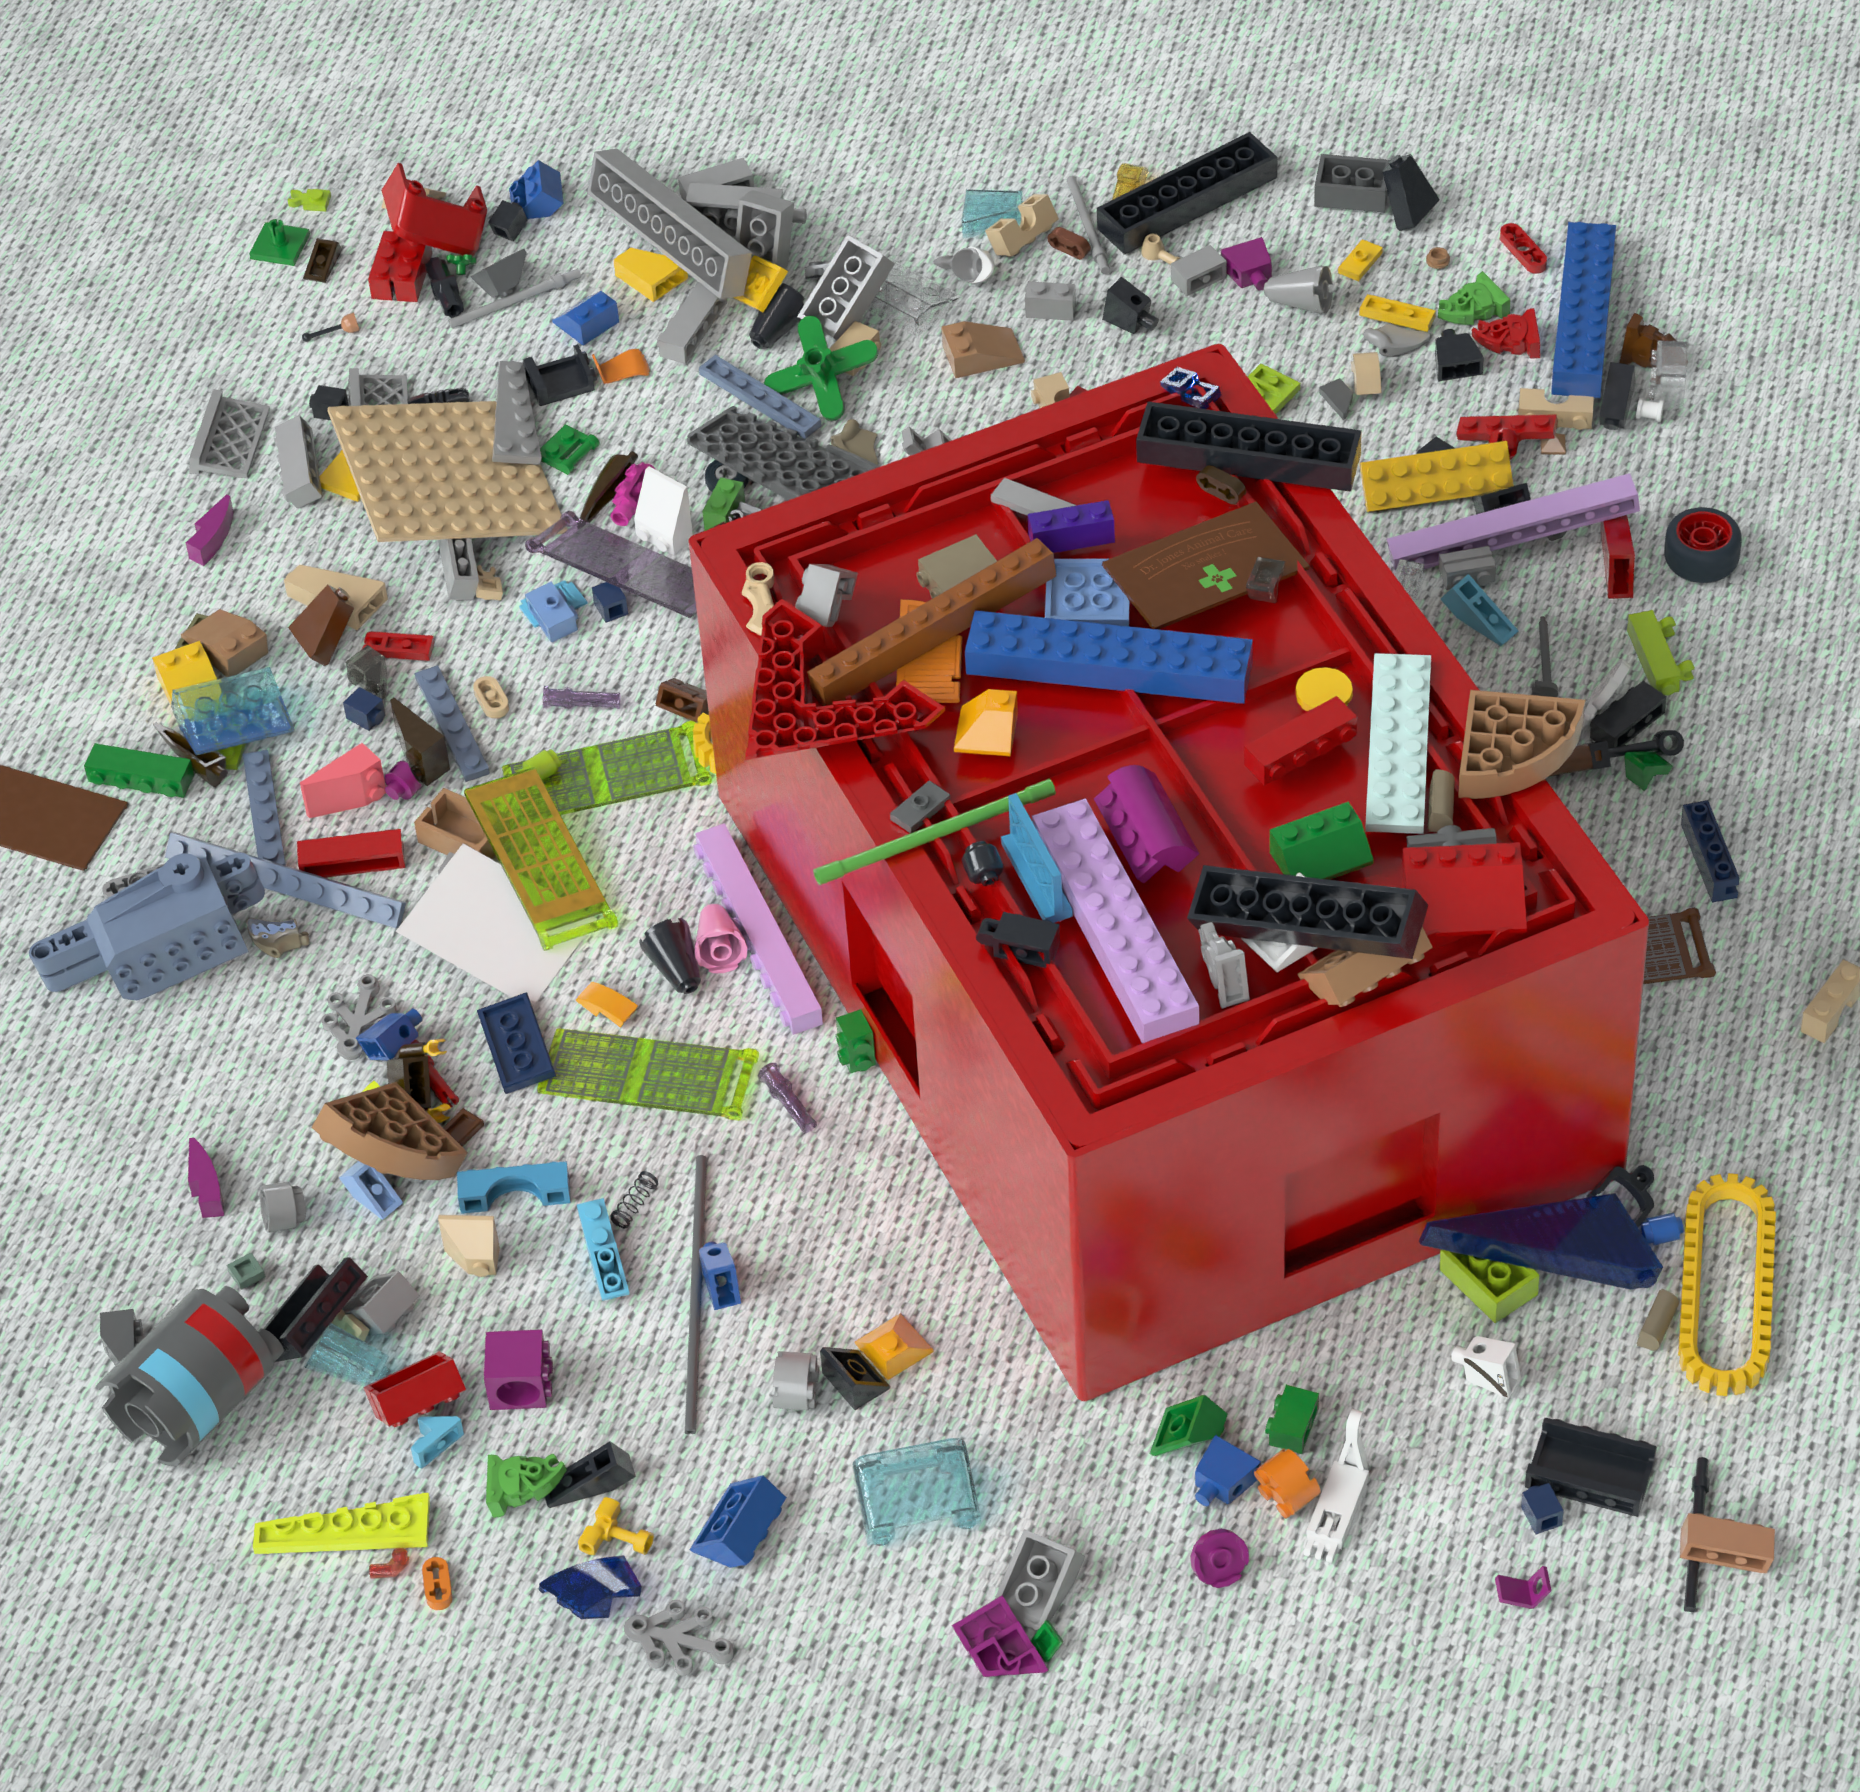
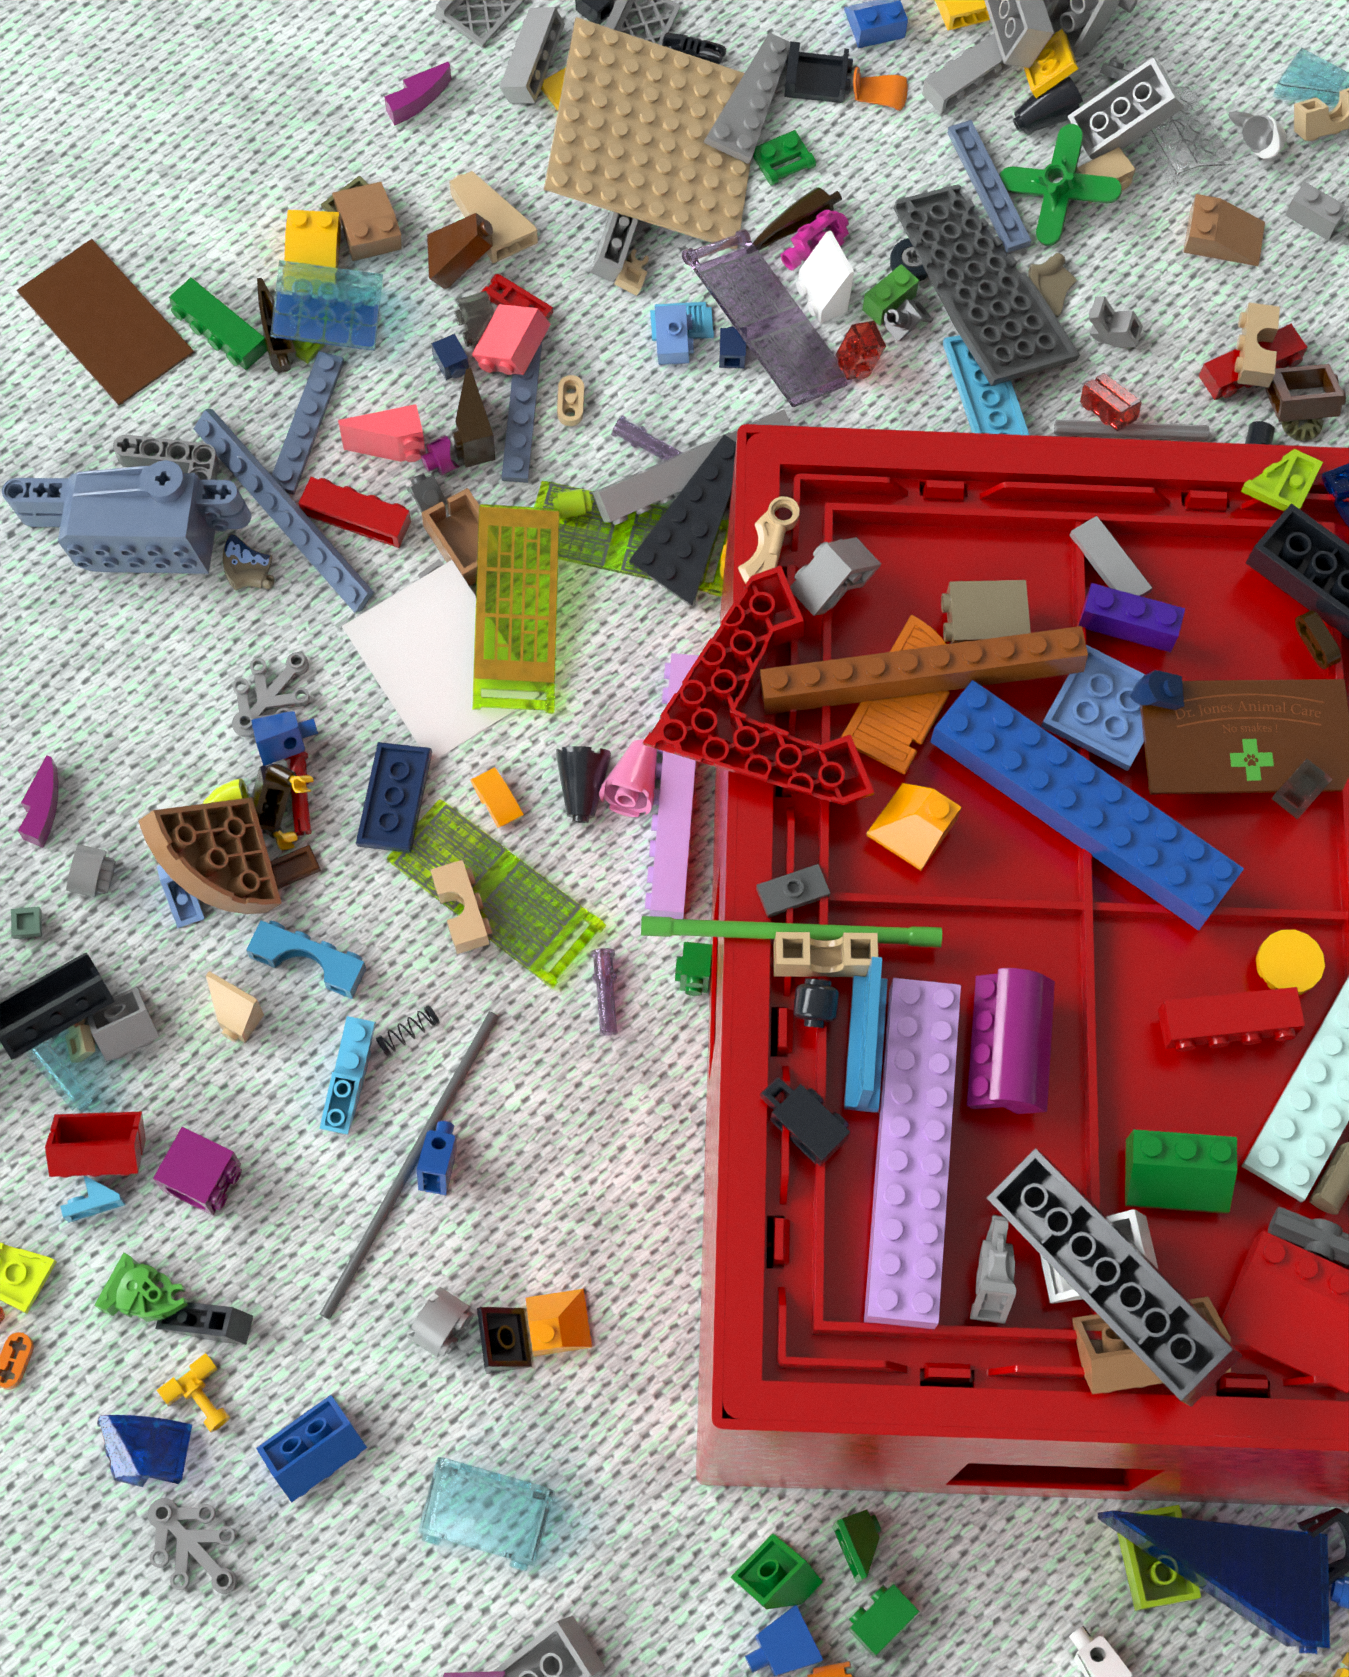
camera: 20 degrees right, 20 degrees up
(404, 814) = (425, 491): none -> dark grey bracket
(412, 669) = (511, 339): none -> coral brick
(612, 1076) = (454, 884): none -> tan arch
(629, 696) = (662, 479): none -> light grey brick
(655, 745) = (687, 532): none -> black wing
(949, 839) = (804, 957): none -> tan arch
(1120, 556) = (1160, 690): none -> dark blue plate
(1133, 397) = (1285, 481): none -> lime wing
(1237, 1374) = (858, 1541): none -> green slope

